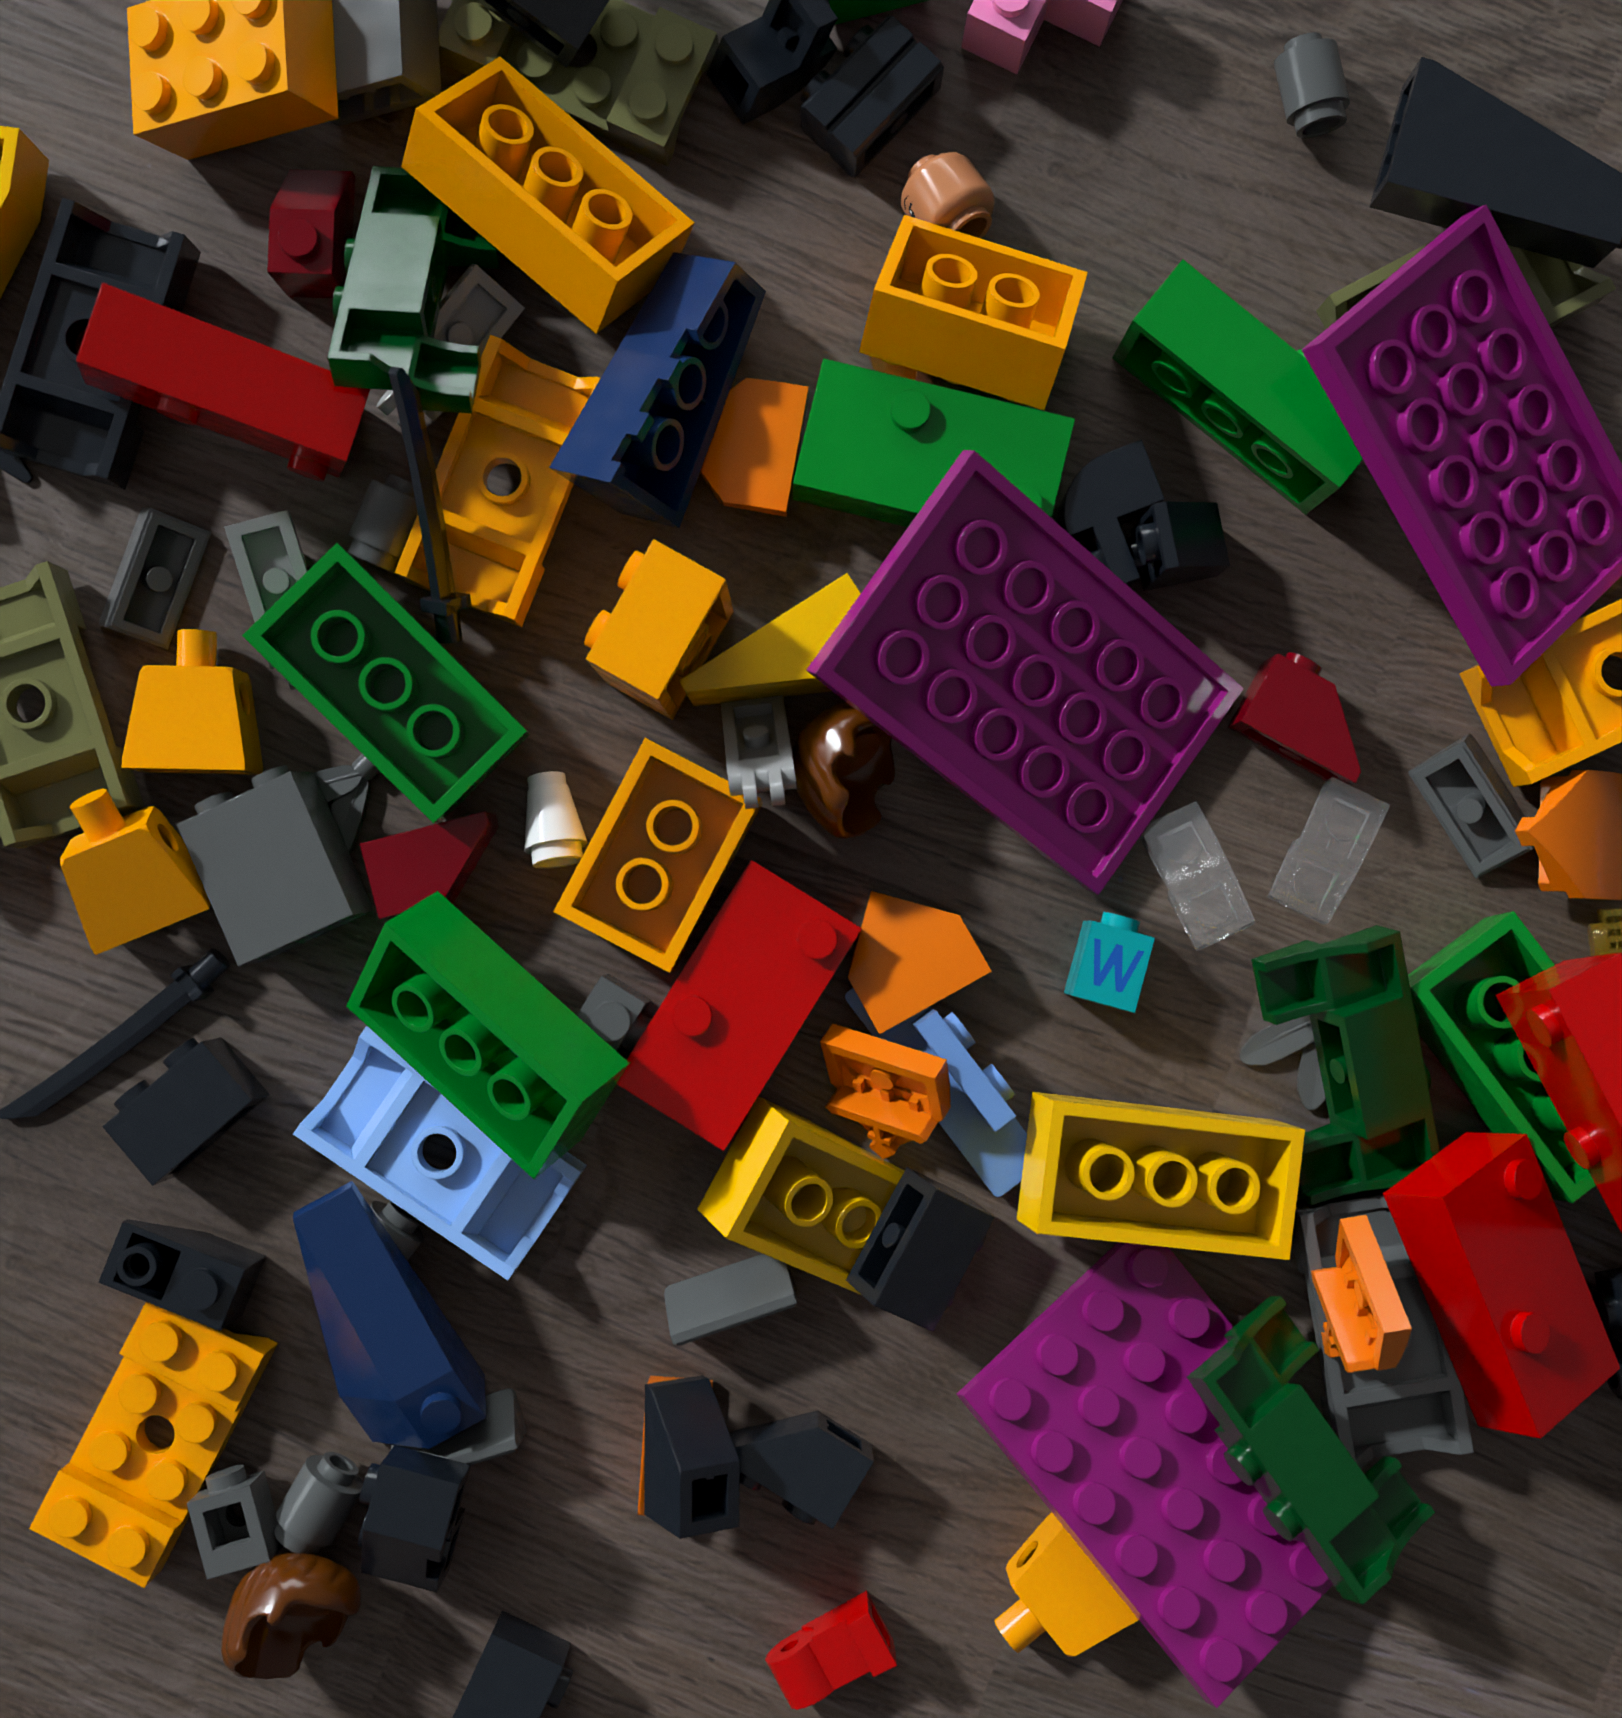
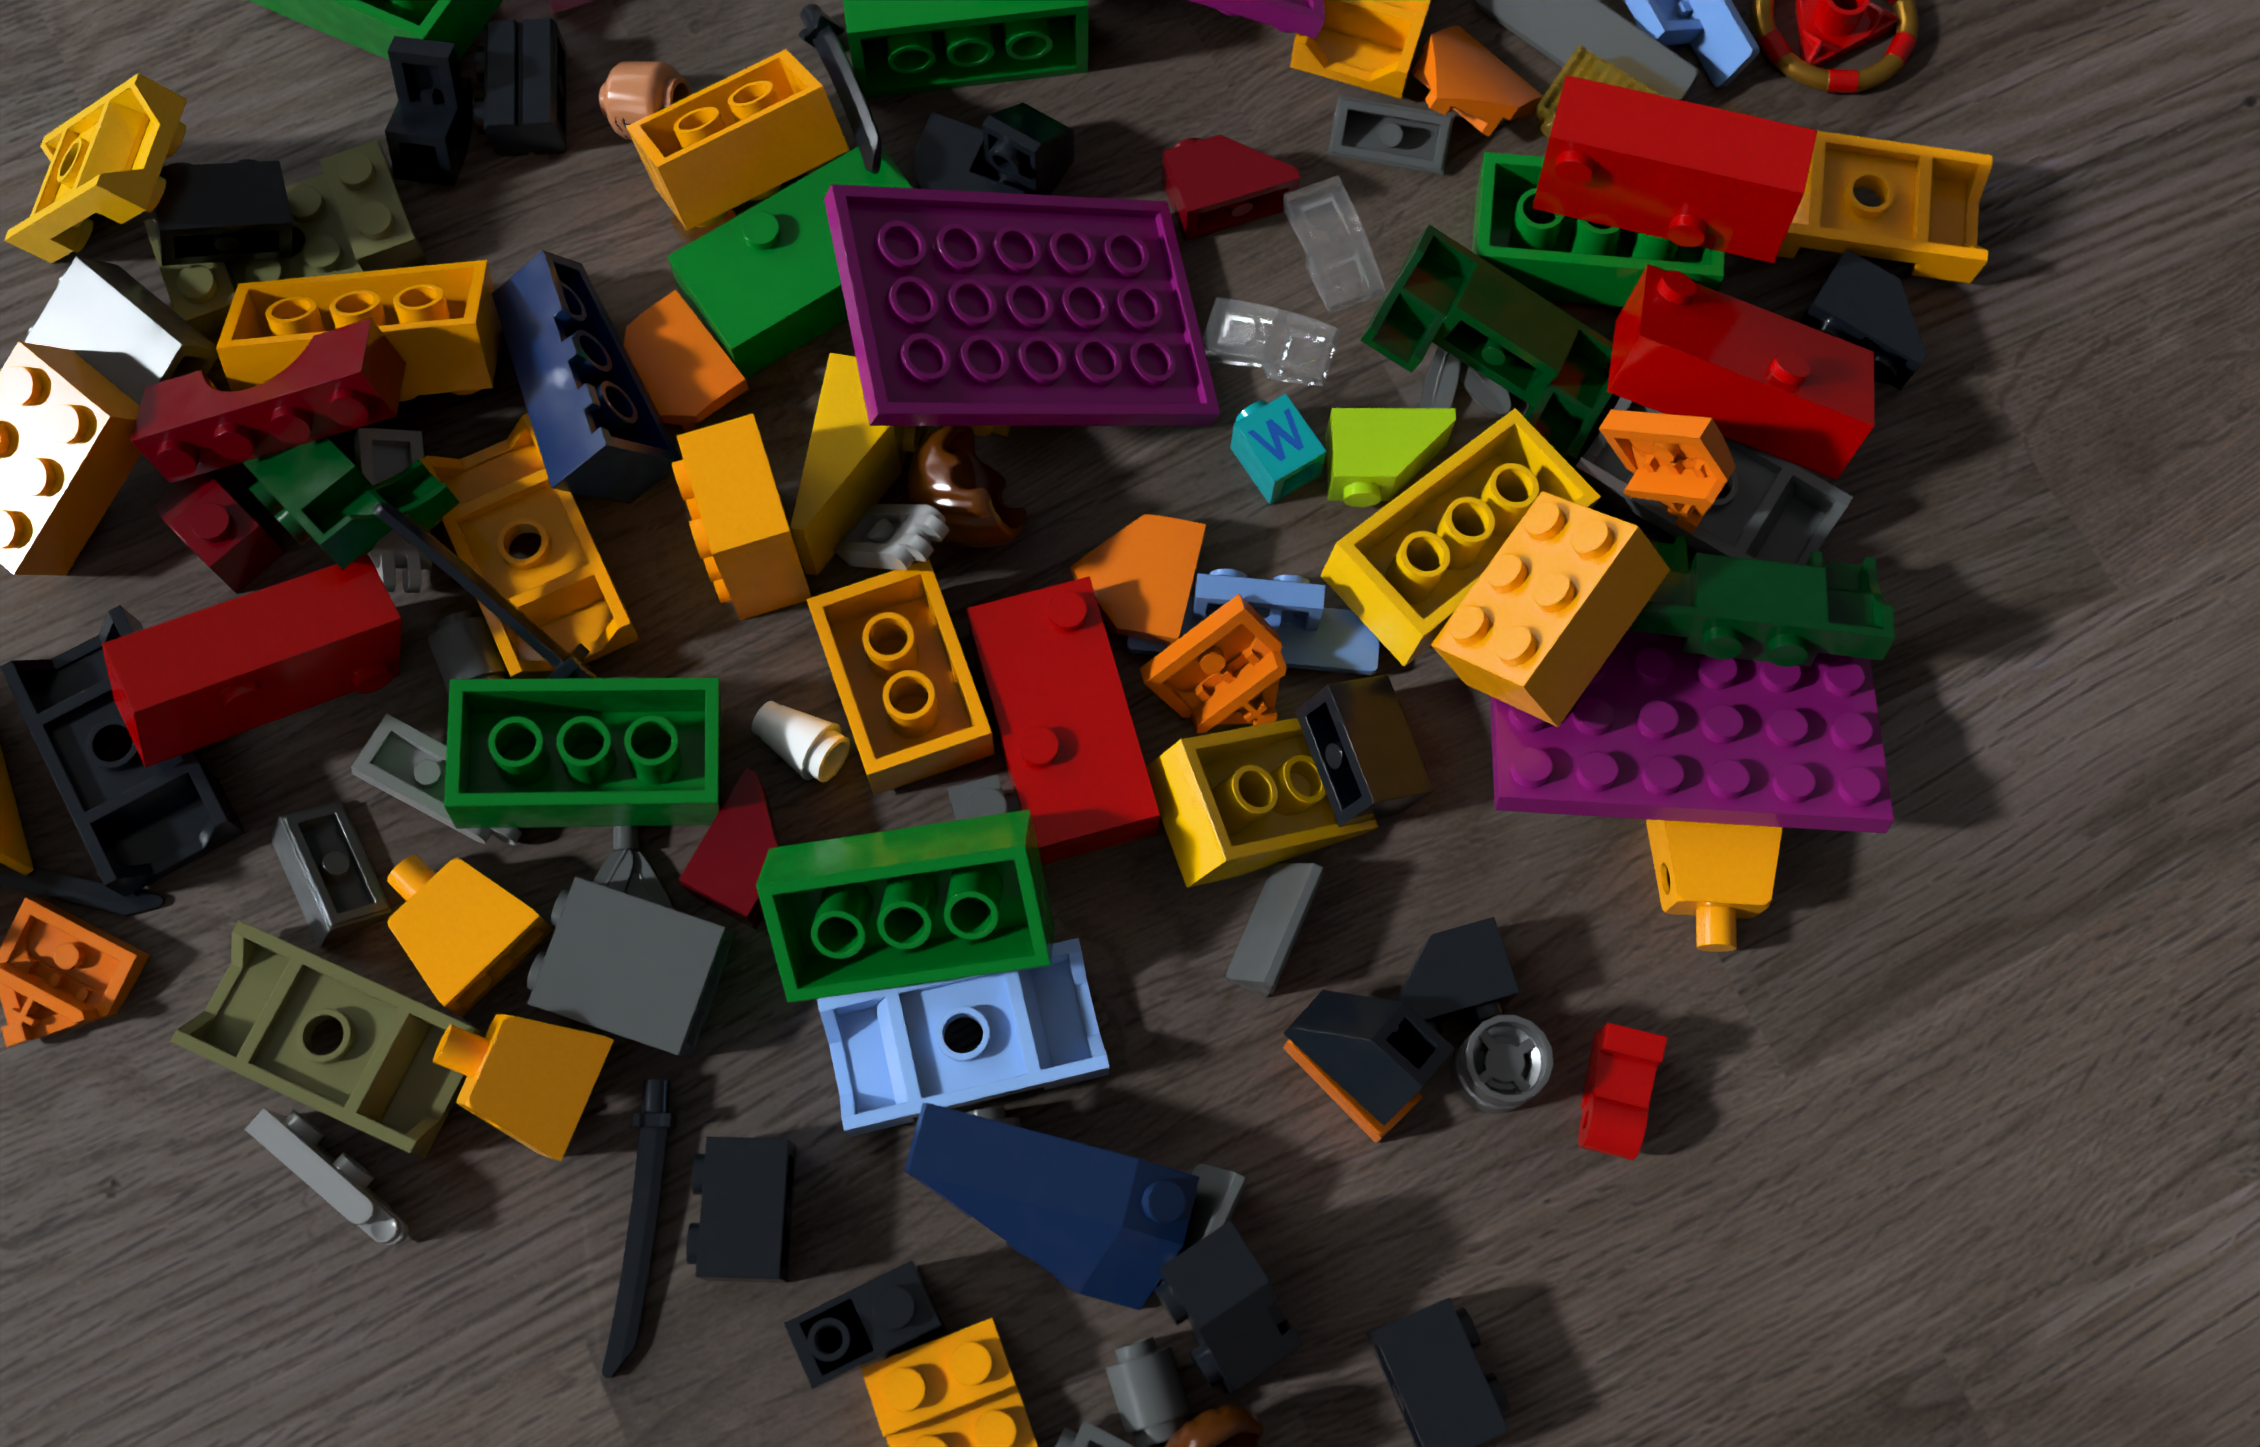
camera: 50 degrees left, 15 degrees down
(469, 228) = (331, 388): none -> dark red arch
(769, 1558) = (1502, 1064): none -> flat silver wheel
(1135, 280) = (822, 34): none -> black sword
(1148, 1314) = (1551, 607): none -> light orange brick
(1179, 1045) = (1381, 450): none -> lime slope

